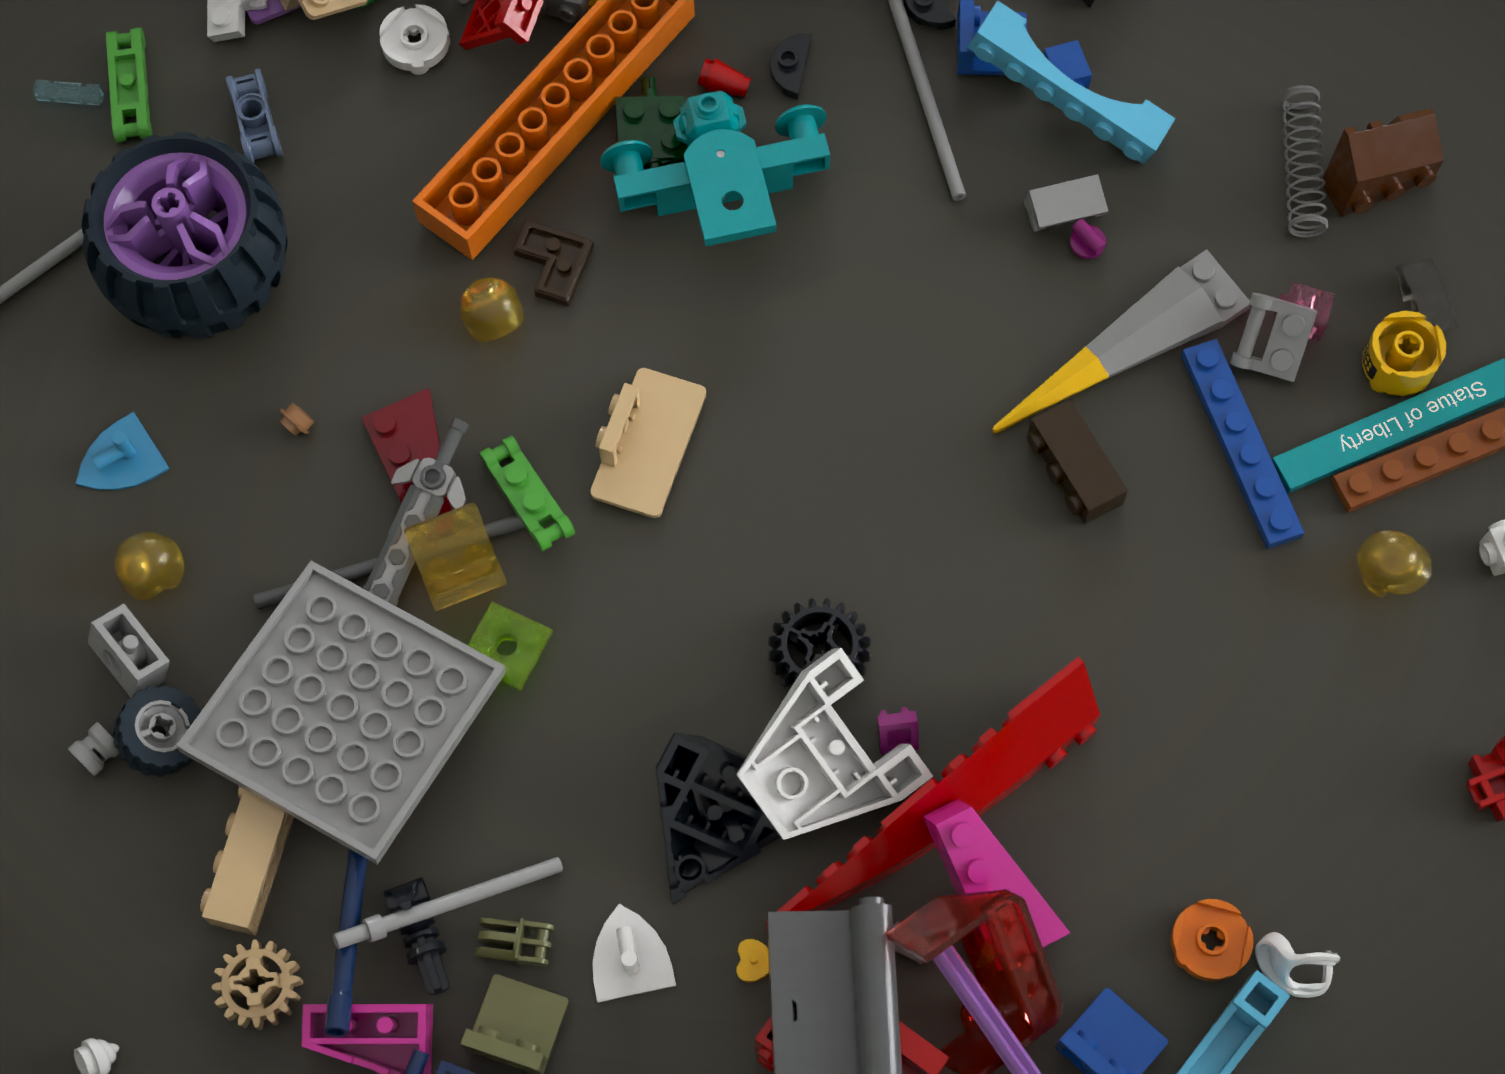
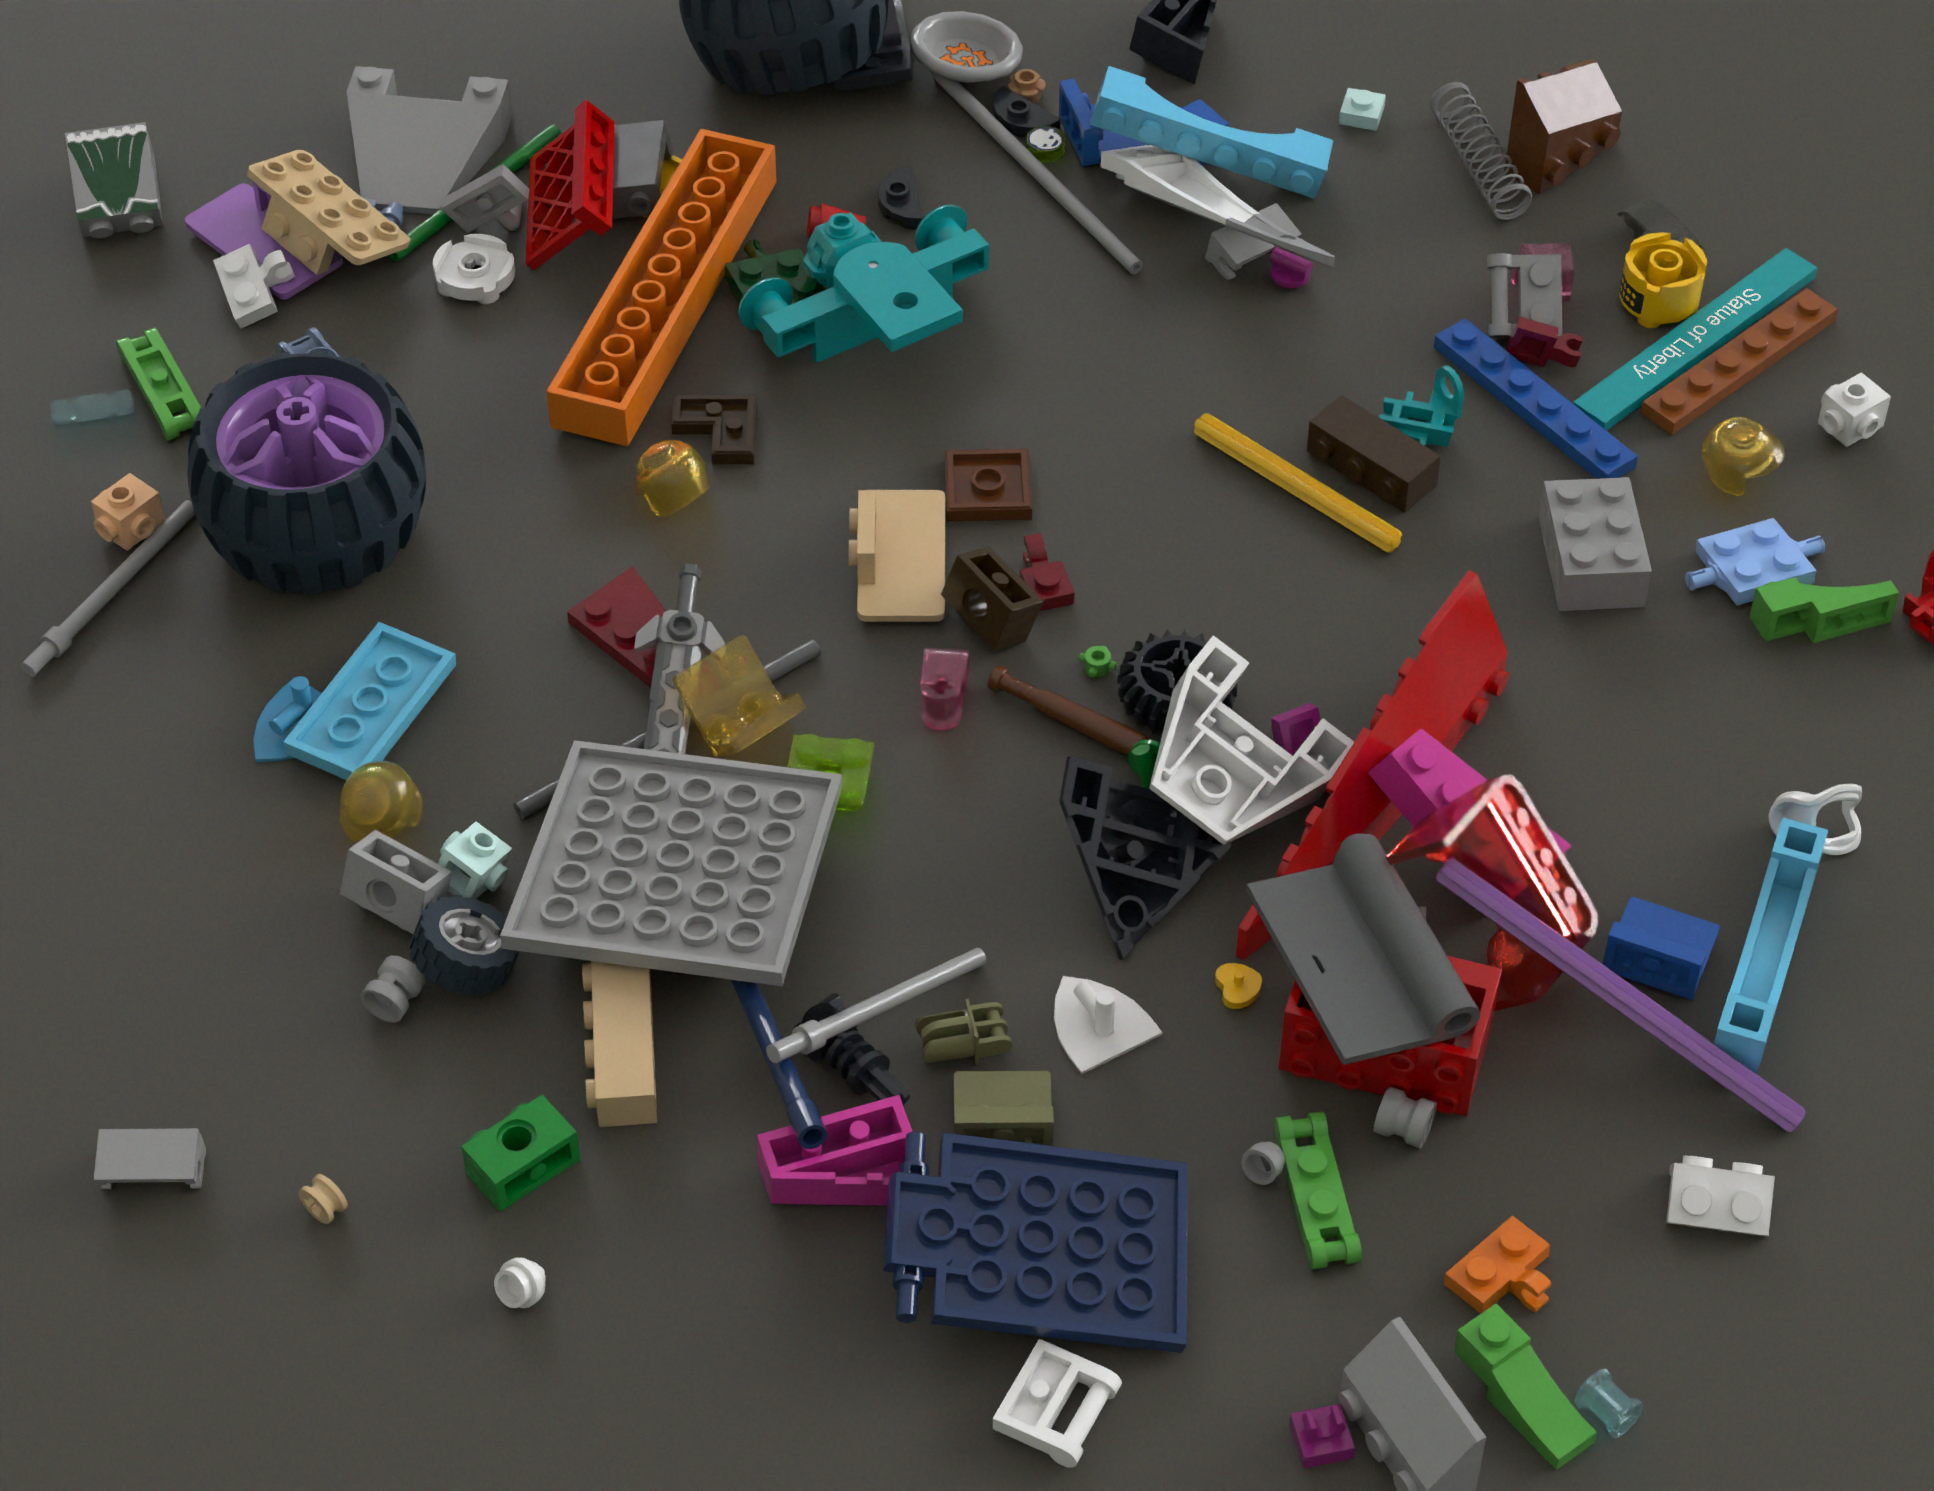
camera: 20 degrees left, 20 degrees down
(52, 215) = (127, 512): none -> light nougat brick
(159, 938) = (508, 1175): none -> green brick
(176, 461) = (370, 702): none -> medium azure plate
(195, 650) = (475, 861): none -> light aqua brick
(240, 984) = (685, 1156): tan gear -> none
(296, 419) = (493, 631): medium nougat plate -> none
(526, 494) = (788, 629): bright green plate -> none
(632, 583) = (944, 686): none -> clear pink piece
(698, 518) = (991, 598): none -> dark brown brick
(735, 663) = (1088, 722): none -> reddish brown piece
(747, 389) = (988, 484): none -> reddish brown tile
(755, 506) = (1045, 578): none -> dark red plate
(760, 717) = (1143, 759): none -> green plate
(766, 600) = (1097, 661): none -> bright green piece
(934, 40) = (1046, 143): none -> tile
(1004, 469) = (1298, 483): none -> yellow axle
(1032, 139) = (1192, 188): none -> white plate
(1151, 434) = (1438, 413): none -> teal piece
(1174, 312) = (1406, 310): light grey plate -> none
(1222, 80) = (1362, 109): none -> light aqua plate
(1226, 617) = (1594, 544): none -> light grey brick
(1230, 928) = (1717, 847): orange plate -> none
(1268, 388) = (1538, 342): none -> dark red plate
(1360, 675) = (1751, 558): none -> light blue plate
(1366, 735) = (1820, 611): none -> bright green slope

